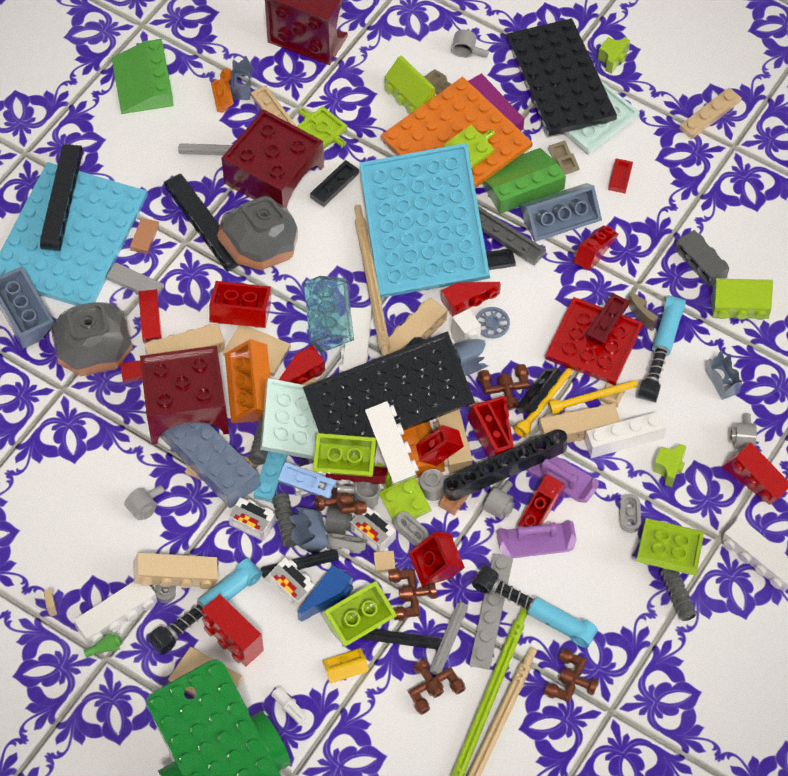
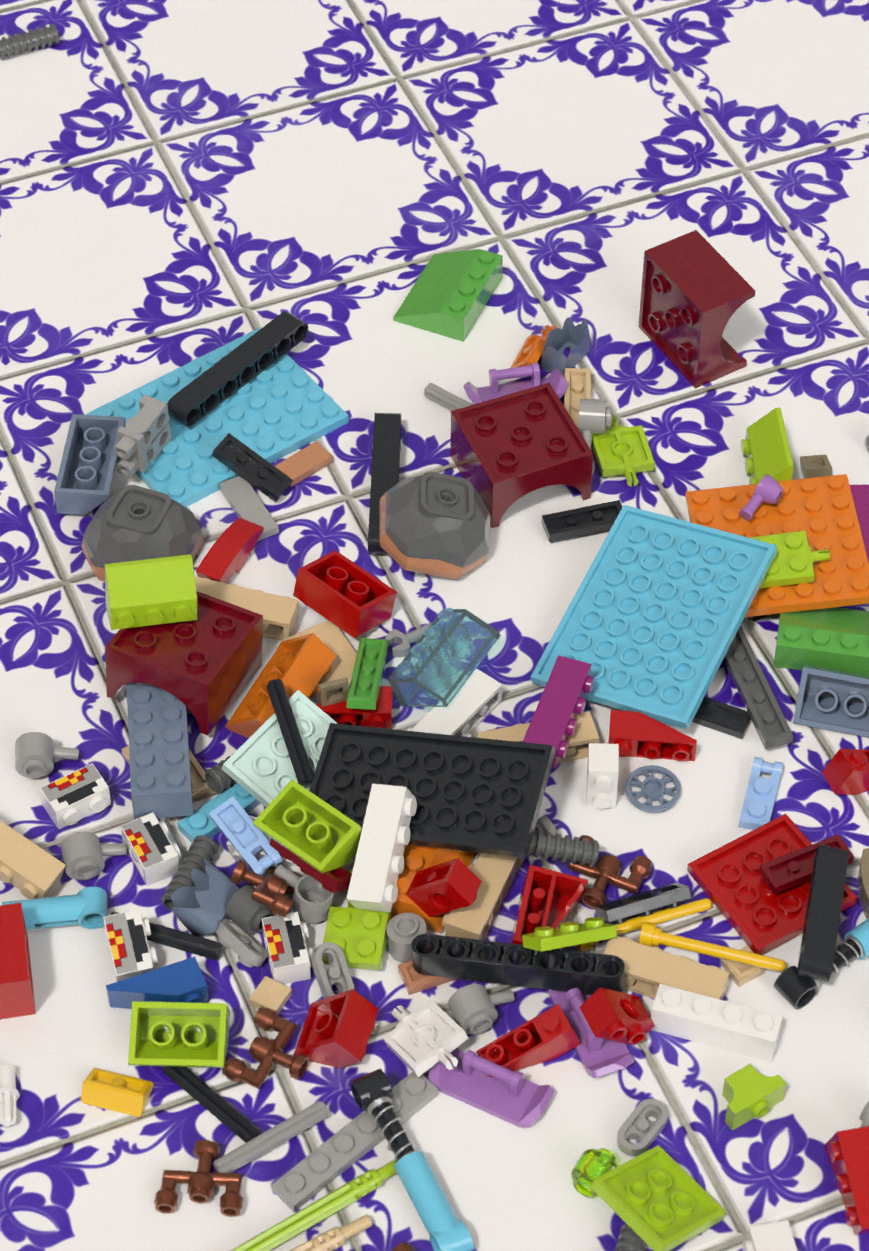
camera: 35 degrees right, 10 degrees down
(45, 272) = (143, 436): none -> light grey hips
(120, 255) = (252, 467): none -> black plate
(150, 369) = (150, 592): none -> lime slope
(184, 514) = (75, 796): none -> brick
(220, 544) = (85, 854): none -> light grey piece
(233, 120) = (493, 391): none -> medium lavender piece
(284, 369) = (332, 692): none -> dark tan slope
(285, 406) = (290, 732): none -> black axle
(291, 312) = (404, 640): none -> light grey bar
(293, 345) = (367, 674): none -> bright green tile
(297, 114) = (594, 418): none -> light grey piece
(379, 320) = (527, 659): tan axle -> none
(417, 305) = (559, 705): none -> magenta brick
(431, 111) = (766, 491): none -> medium lavender bar
(468, 355) = (577, 809): sand blue piece -> none
(485, 383) = (564, 848): none -> dark grey piece
(487, 534) = (425, 1038): none -> white plate
(523, 432) = (569, 934): none -> lime plate
(550, 293) = (760, 794): none -> light blue plate
(578, 462) = (617, 1016): none -> red brick
(626, 552) = (588, 1167): none -> clear neon green head
(639, 342) = (823, 913): none -> black beam

